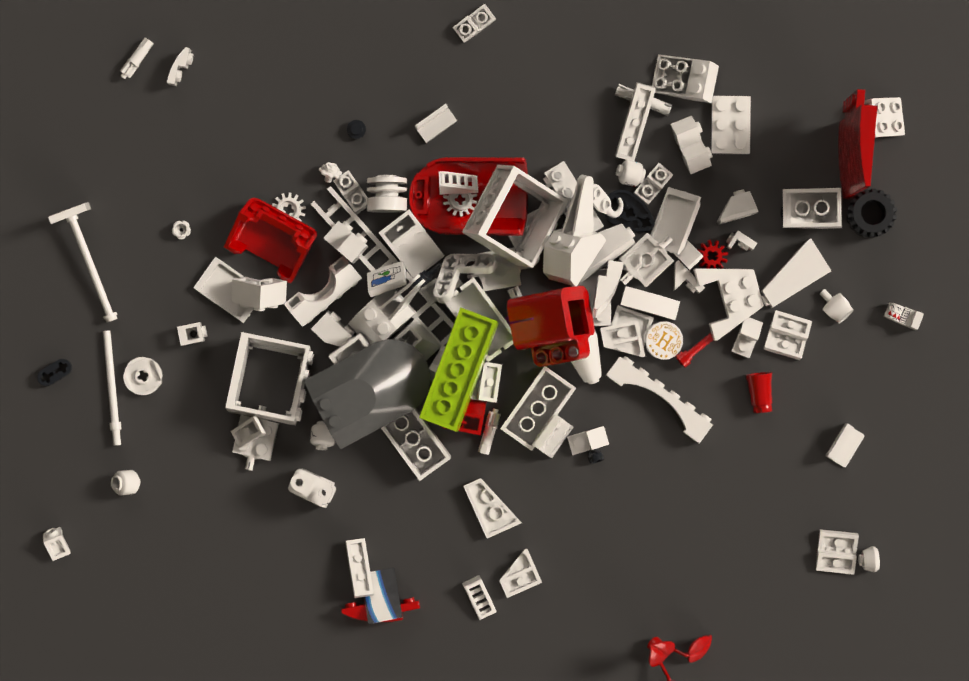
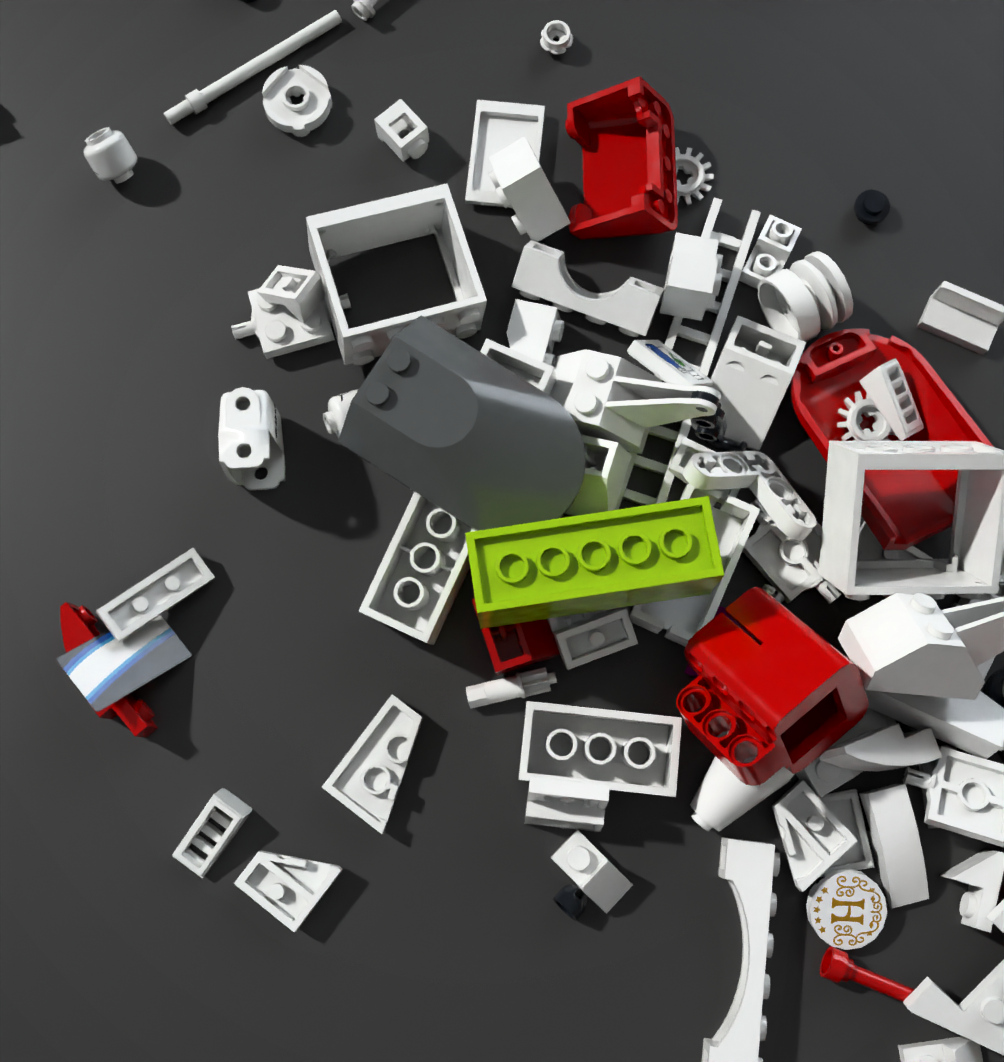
camera: 65 degrees right, 10 degrees down
(330, 171) = (783, 201): white plant -> none

